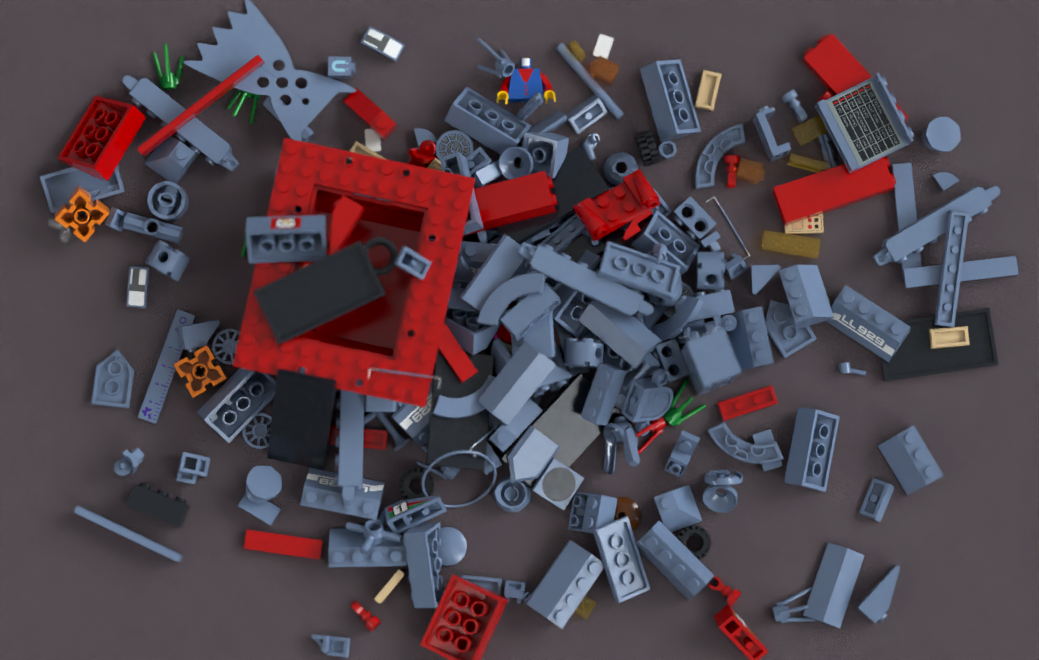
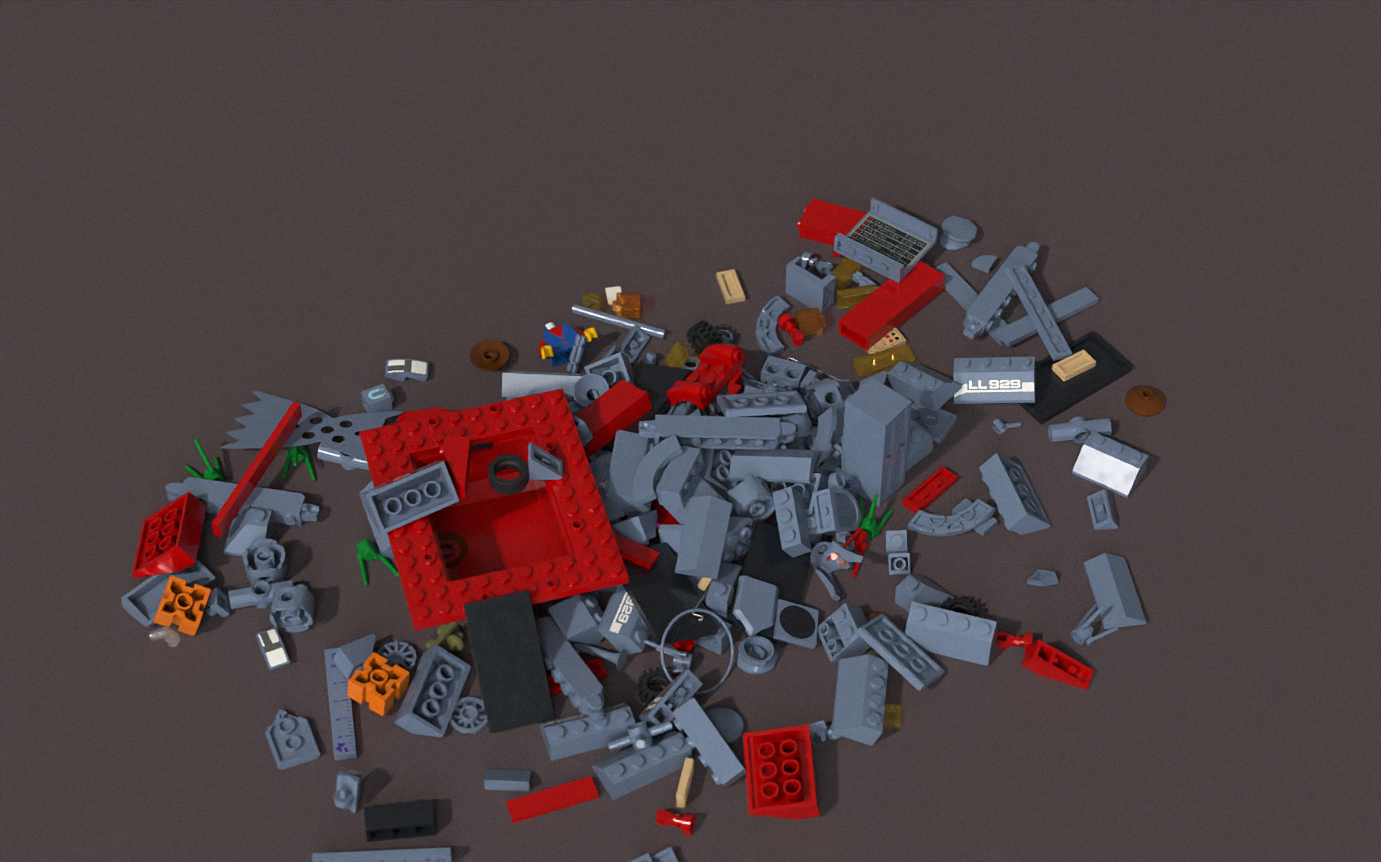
camera: 30 degrees left, 35 degrees down
(191, 466) = (415, 770): sand blue brick -> none
(263, 484) = (499, 753): sand blue hat -> none
(319, 292) = (467, 520): black tile -> none
(405, 374) = (591, 556): piece -> none
(455, 57) = (489, 355): none -> reddish brown dish
(463, 406) = (661, 584): sand blue tile -> none
(503, 65) = (530, 332): sand blue plant -> none
(607, 162) = (677, 355): none -> clear yellow slope
(670, 99) = (699, 301): sand blue slope -> none
(720, 502) = (967, 569): sand blue piece -> none
(723, 477) = (952, 545): sand blue tile -> none
(783, 541) = (1043, 578): none -> sand blue slope
(878, 599) = (1165, 580): sand blue slope -> none
(909, 409) = (1078, 429): none -> sand blue piece
(978, 404) = (1145, 400): none -> reddish brown dish

